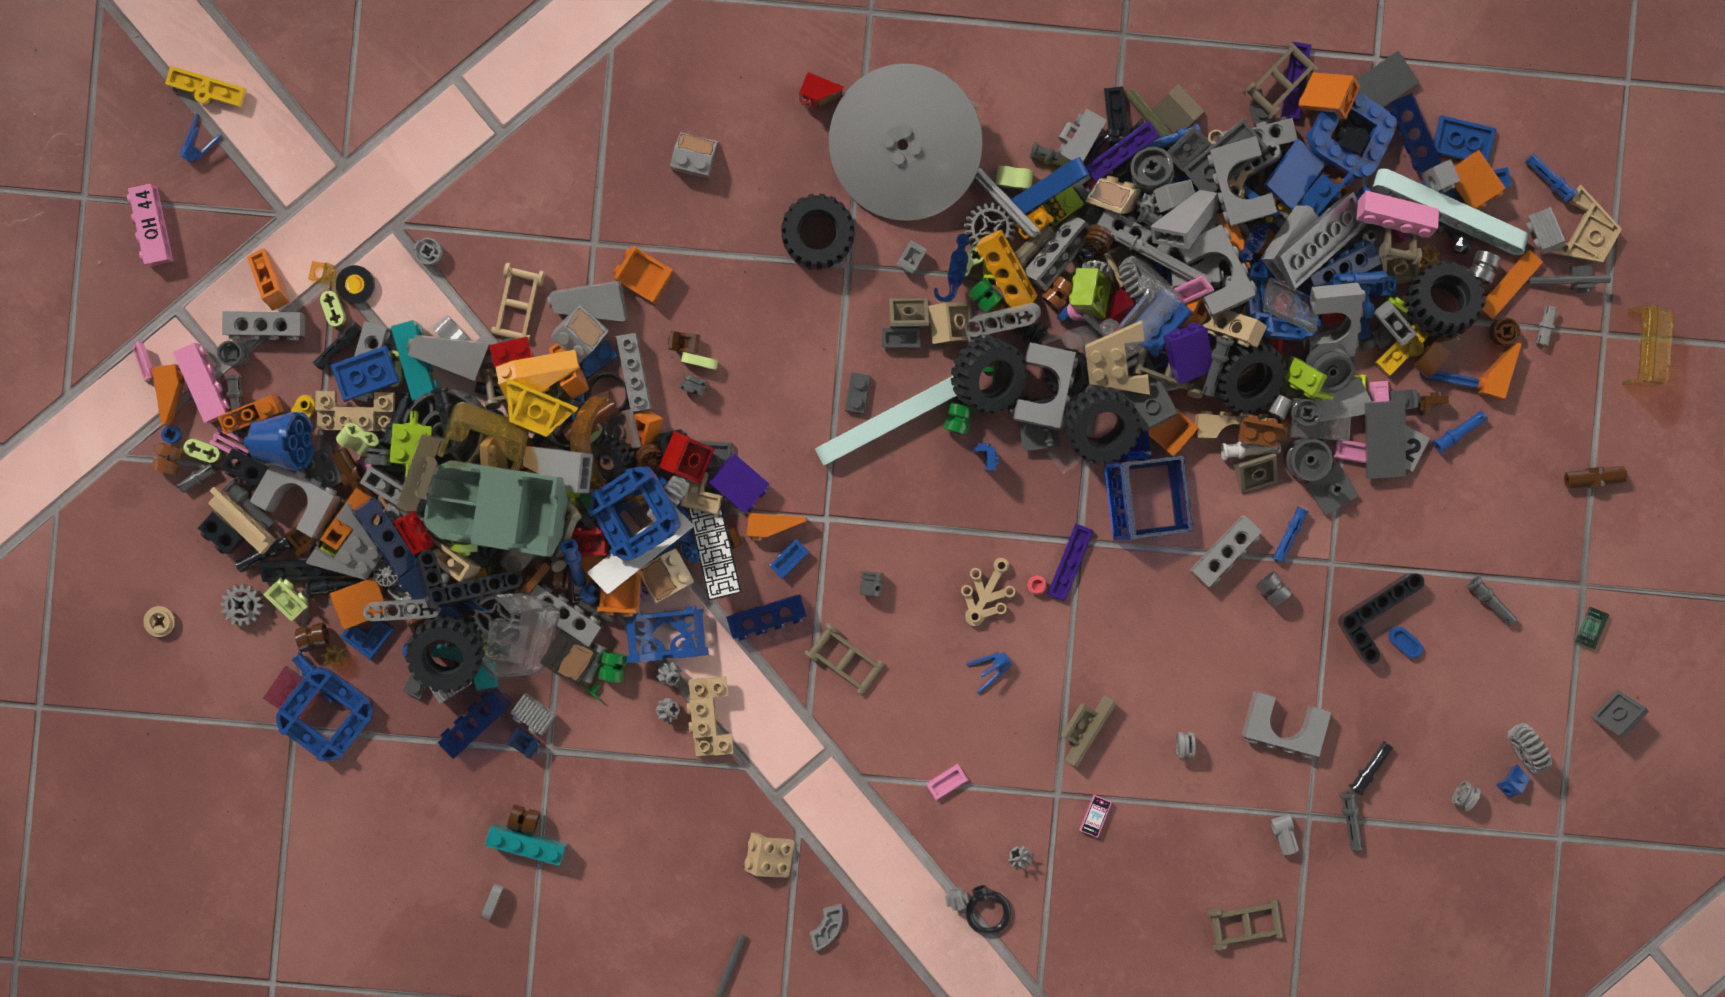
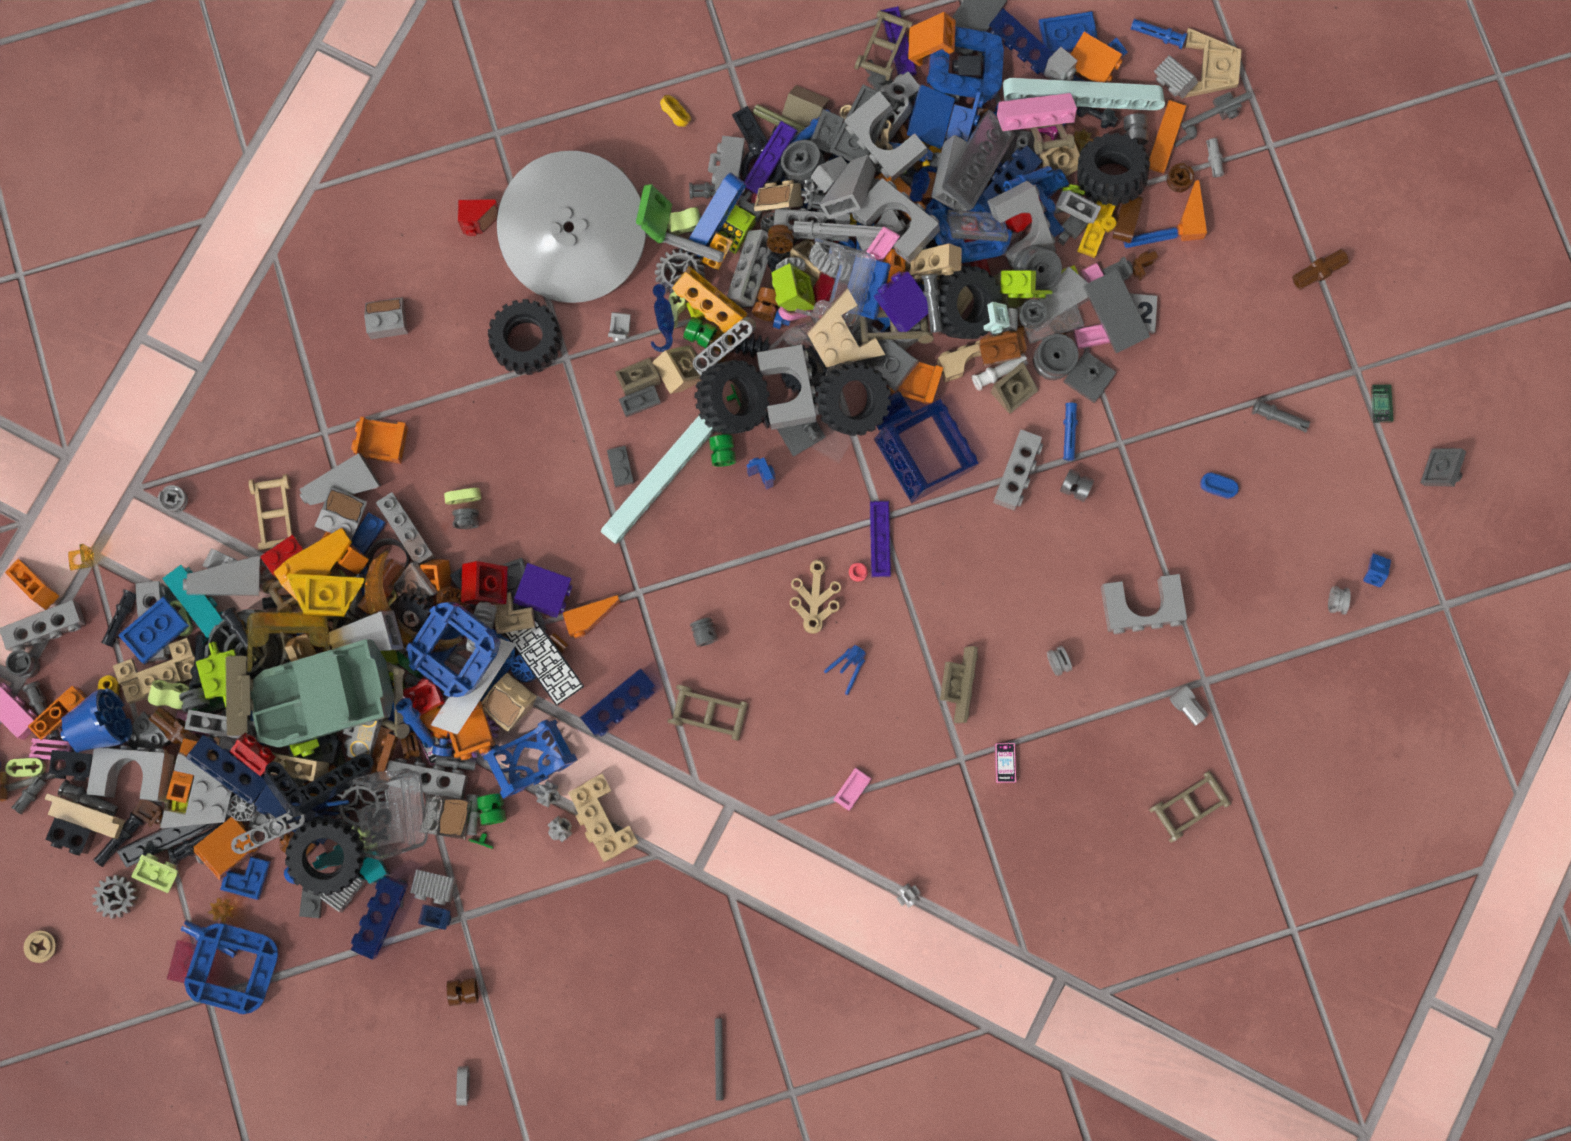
camera: 25 degrees left, 10 degrees down
(312, 637) = (191, 901): reddish brown wheel -> none
(328, 310) = (99, 590): yellowish green beam -> none
(355, 284) = (115, 556): black tile -> none
(526, 845) = (474, 1014): teal brick -> none
(683, 342) = (441, 484): reddish brown bracket -> none
(769, 856) = (712, 929): tan bracket -> none
(789, 558) = (618, 641): blue plate -> none
(829, 927) = (798, 976): light grey tile -> none
(981, 894) = (929, 882): black piece -> none
(988, 162) = (654, 213): none -> bright green container
(1020, 857) = (951, 830): light grey gear -> none
(1034, 244) = (726, 271): dark tan axle -> none
(1051, 62) = (675, 111): none -> yellow plate
(1272, 403) = (998, 318): none -> light aqua bracket
(1351, 810) = (1240, 659): dark grey pin -> none
(1366, 775) = (1239, 619): black pin -> none
(1374, 611) = (1177, 466): black beam -> none
(1453, 436) = (1177, 286): blue pin -> none
(1529, 748) = (1375, 530): light grey gear -> none
(1535, 291) = (1191, 134): none -> dark grey hand
(1654, 346) = (1316, 134): clear yellow windscreen -> none

